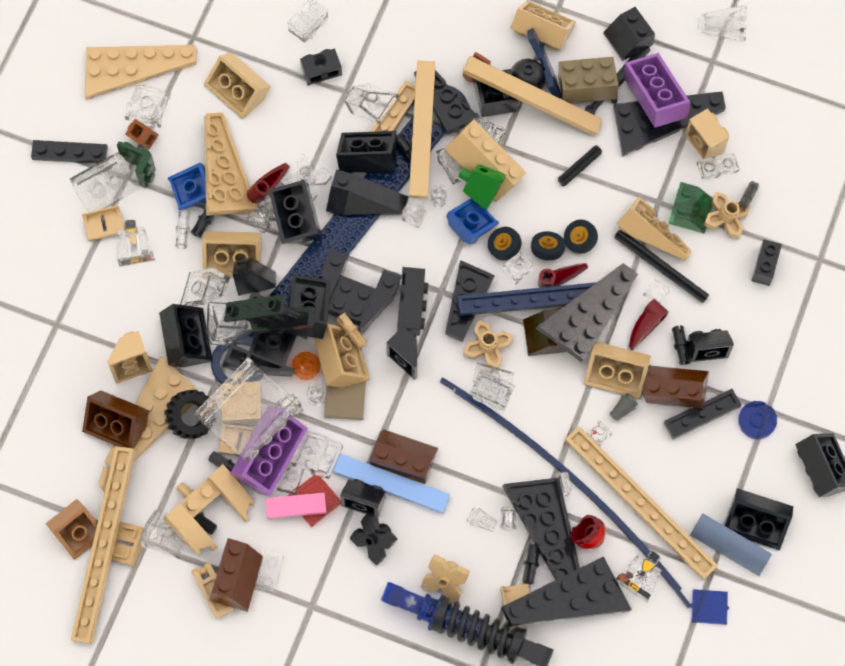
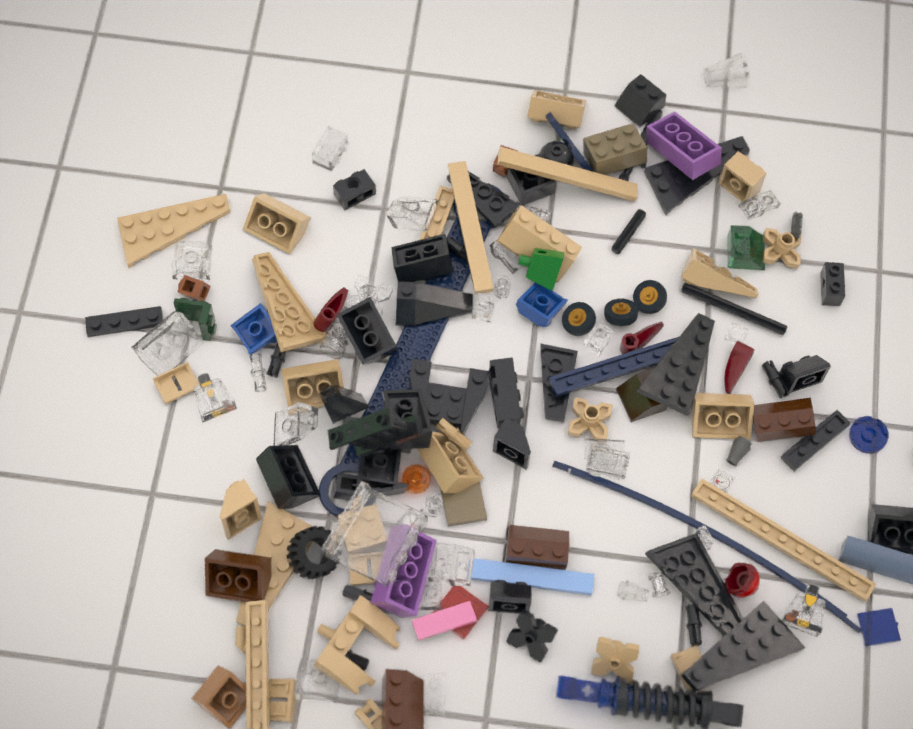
camera: 15 degrees left, 5 degrees down
(224, 332) = (322, 460): clear slope -> none

